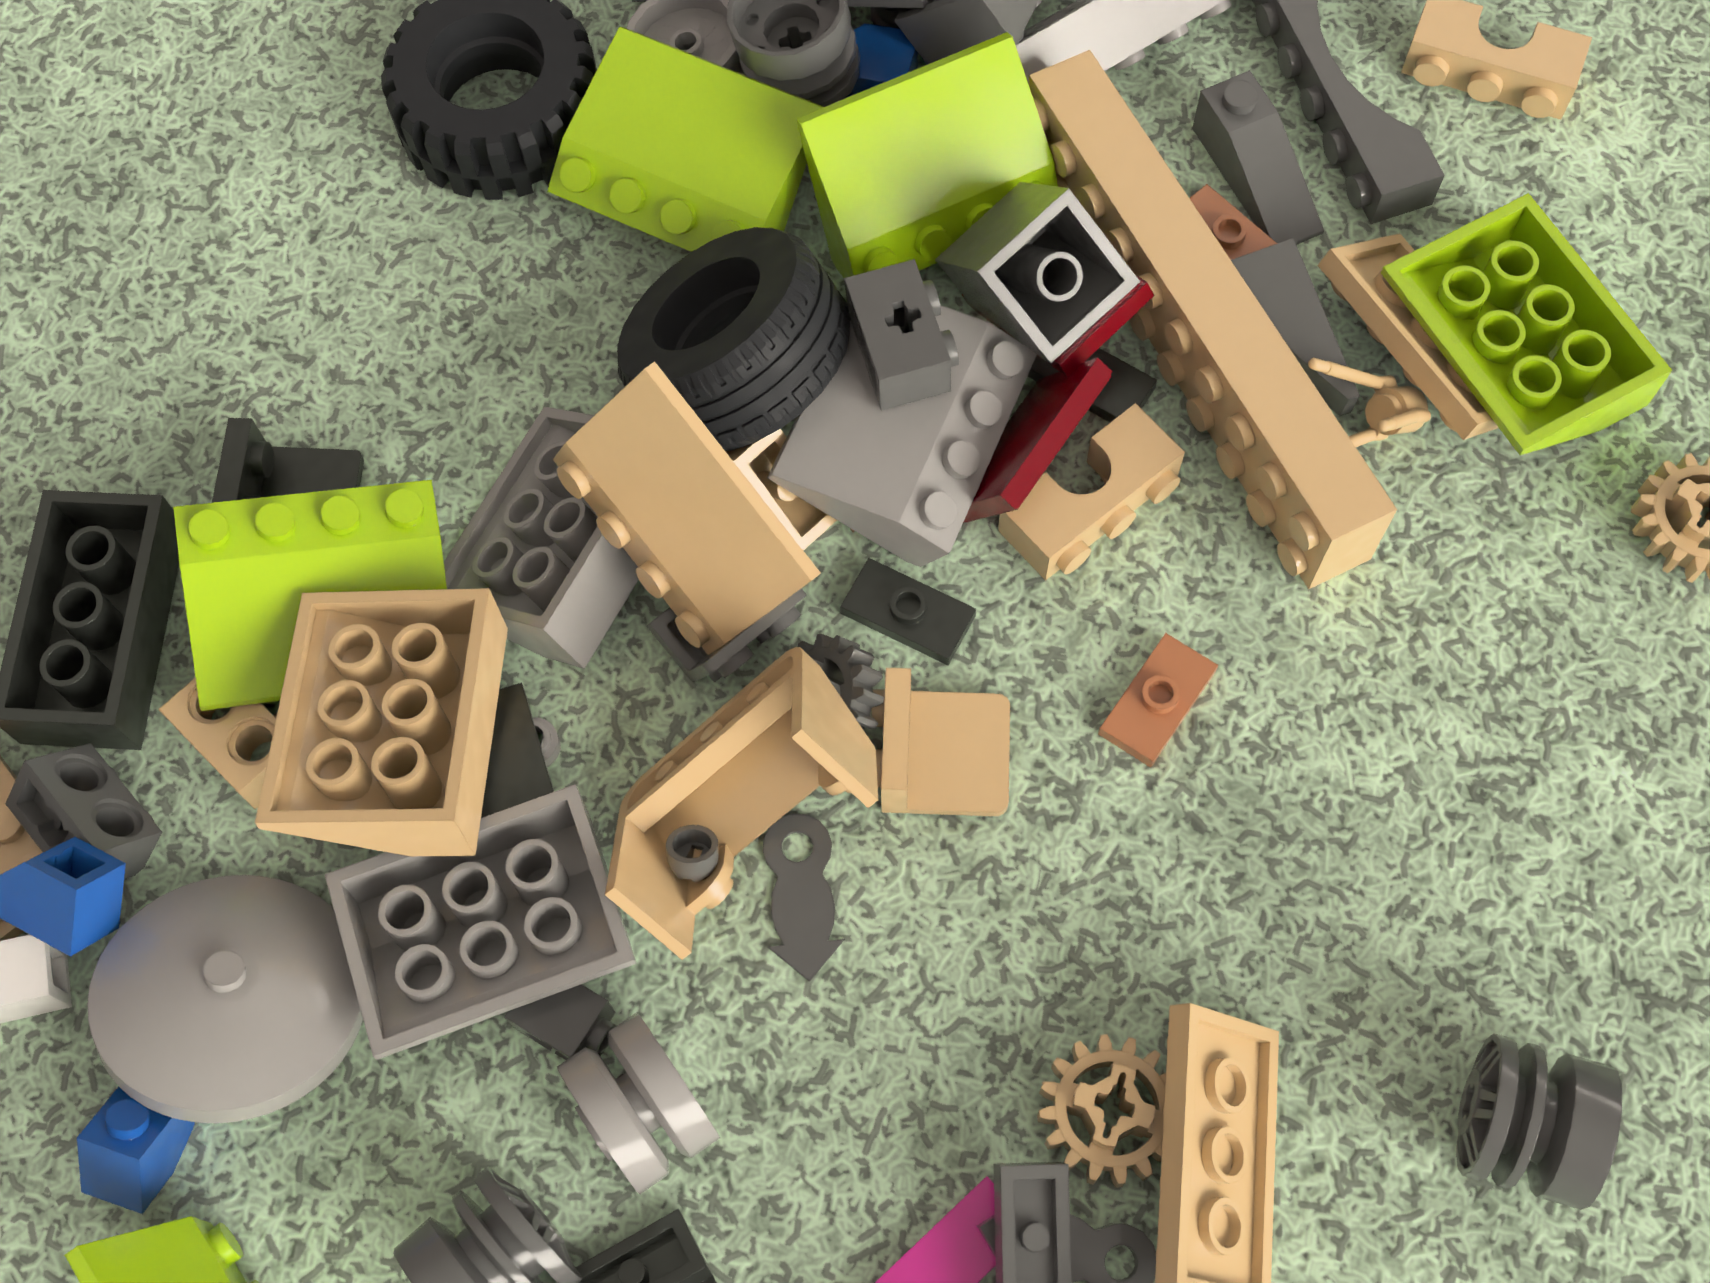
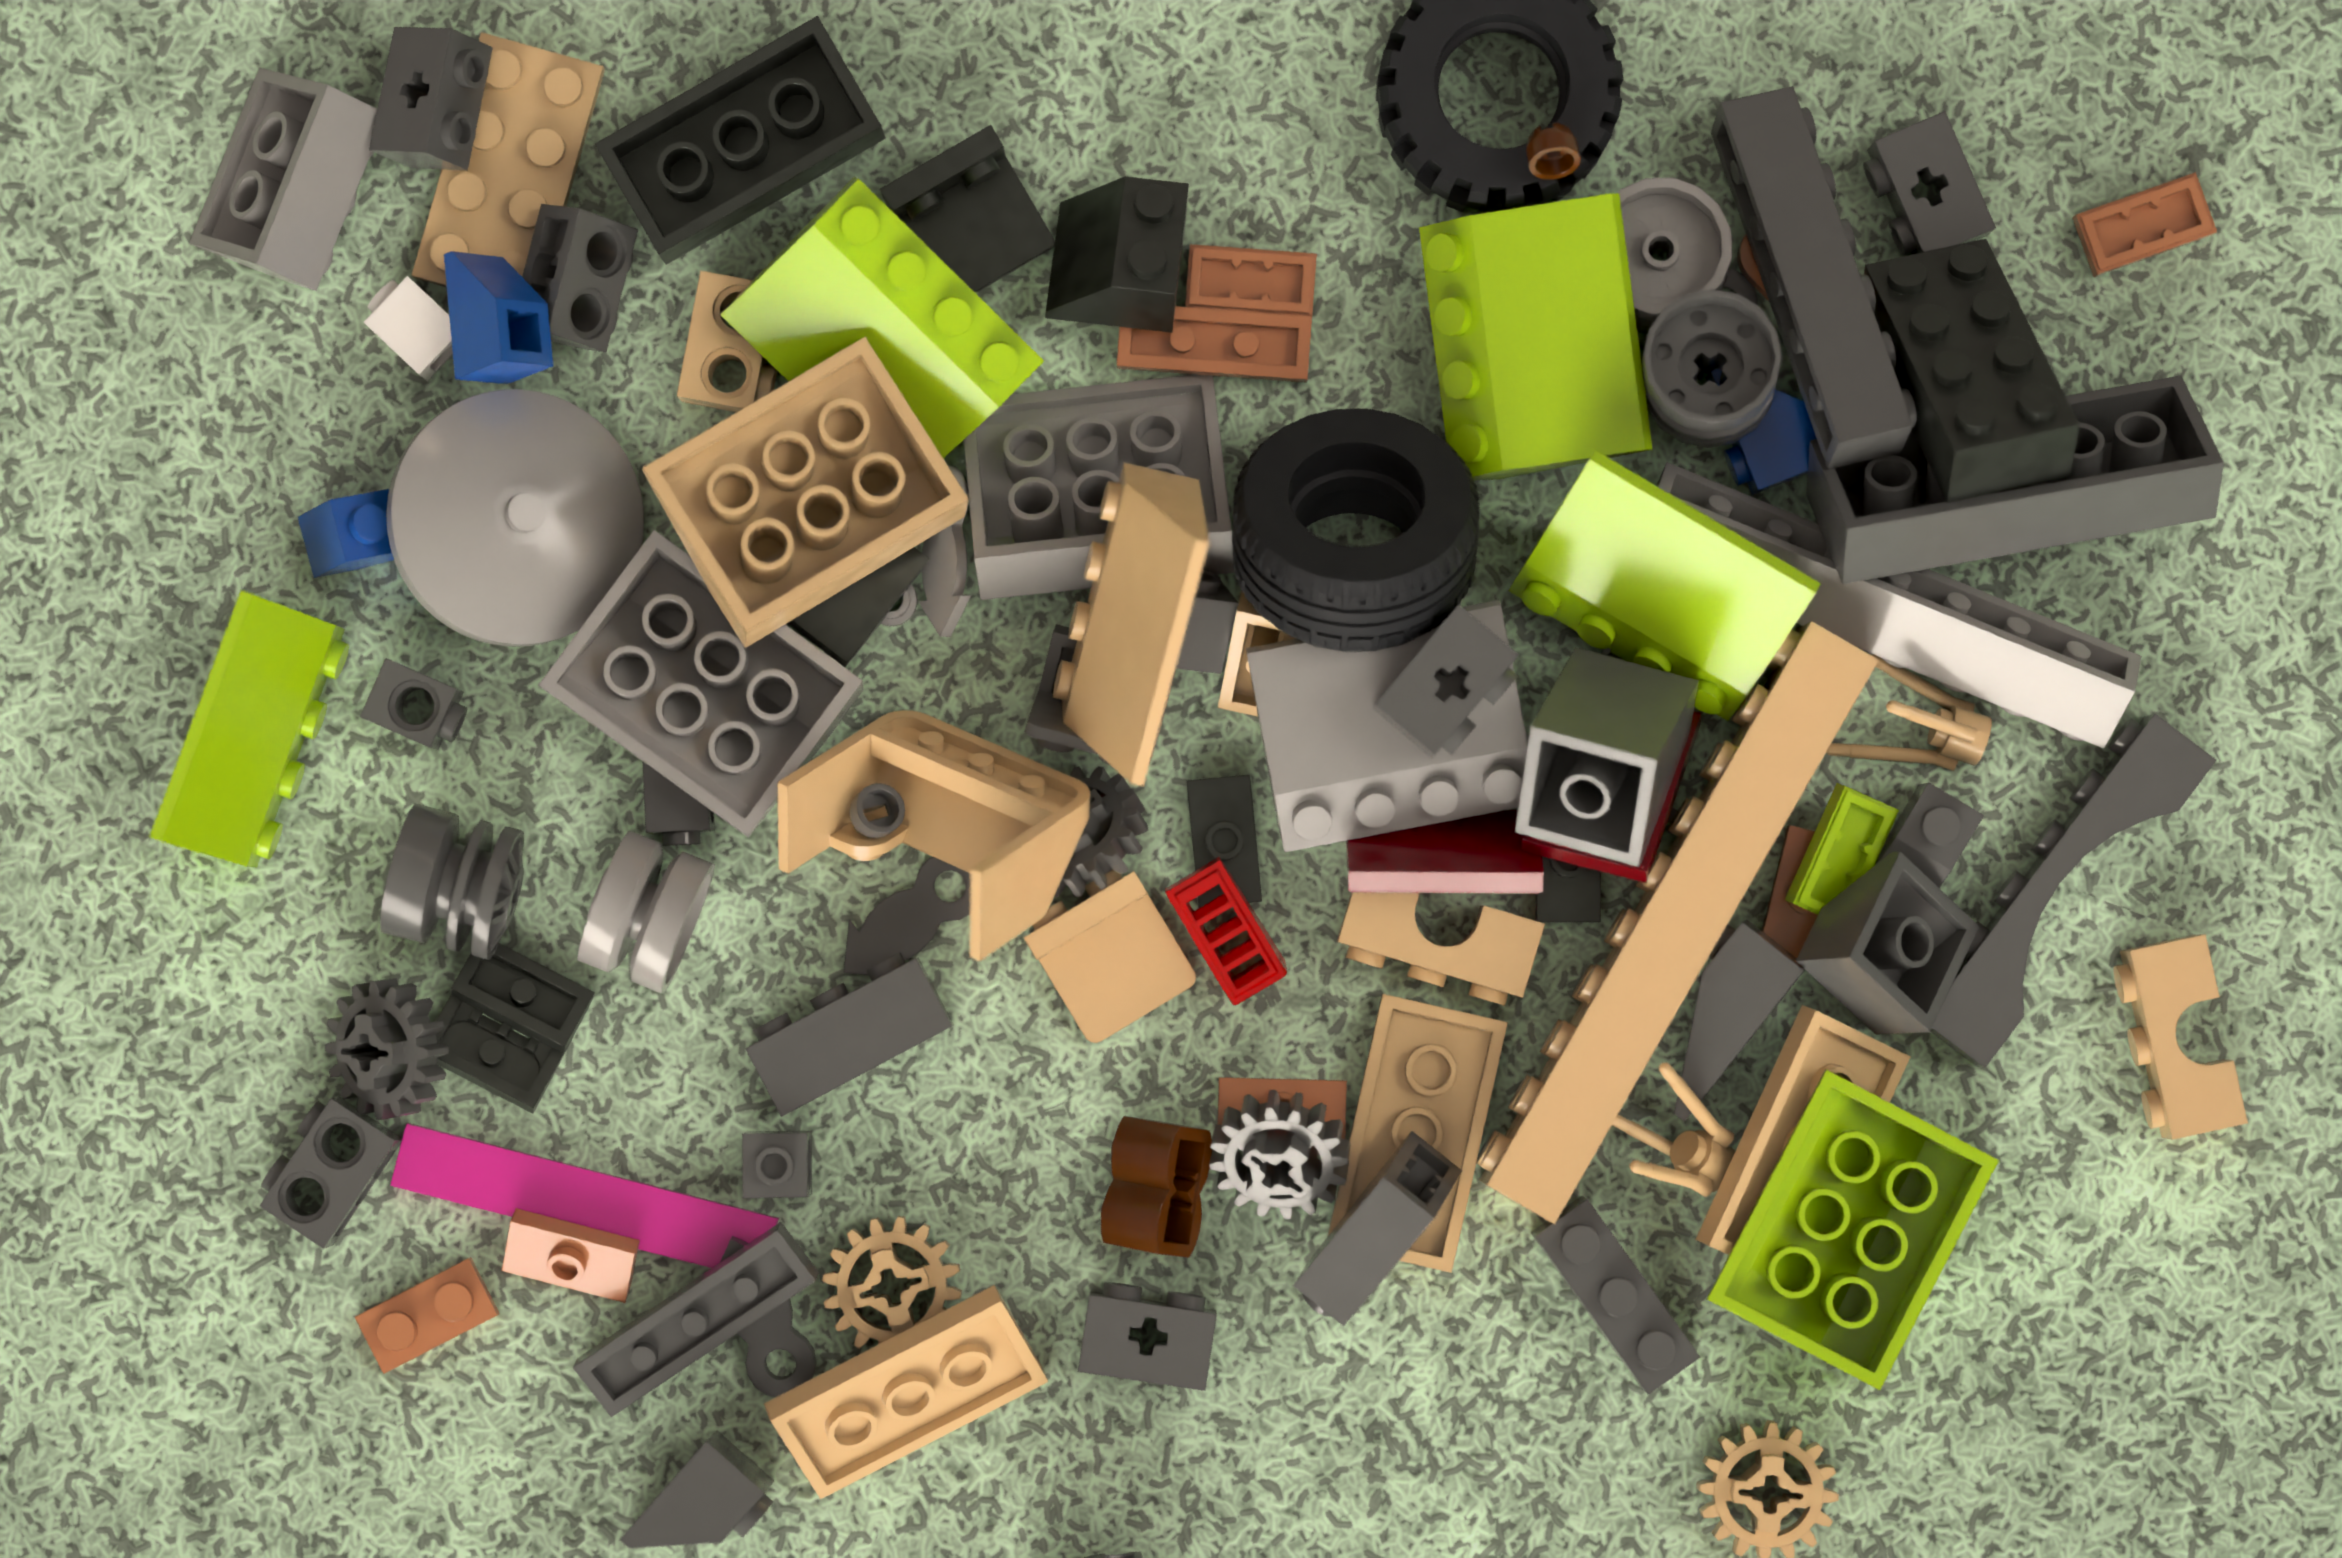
camera: 55 degrees right, 20 degrees up
(287, 1196) = (388, 697): none -> dark grey brick
(404, 398) = (1119, 255): none -> pearl dark grey slope
(498, 337) = (1251, 280): none -> nougat plate
(521, 387) = (1222, 345): none -> nougat plate
(546, 683) = (946, 573): none -> light grey brick
(561, 36) = (1554, 164): none -> reddish brown hinge
(863, 1004) = (847, 1033): none -> dark grey brick
(938, 1139) = (777, 1164): none -> dark grey brick
(1035, 645) = (1253, 978): none -> red slope
(1162, 827) = (1156, 1186): none -> reddish brown brick
(1168, 79) = (1955, 732): none -> tan plant
(1203, 707) = (1280, 1154): none -> dark grey gear
(1216, 182) = (1841, 847): none -> lime plate
(1243, 607) = (1429, 1076): none -> tan plate
(1312, 184) = (1889, 947): none -> dark grey slope
(1314, 888) = (1113, 1353): none -> dark grey brick
(1316, 665) = (1377, 1229): none -> dark grey slope
(1477, 532) = (1615, 1295): none -> dark grey brick

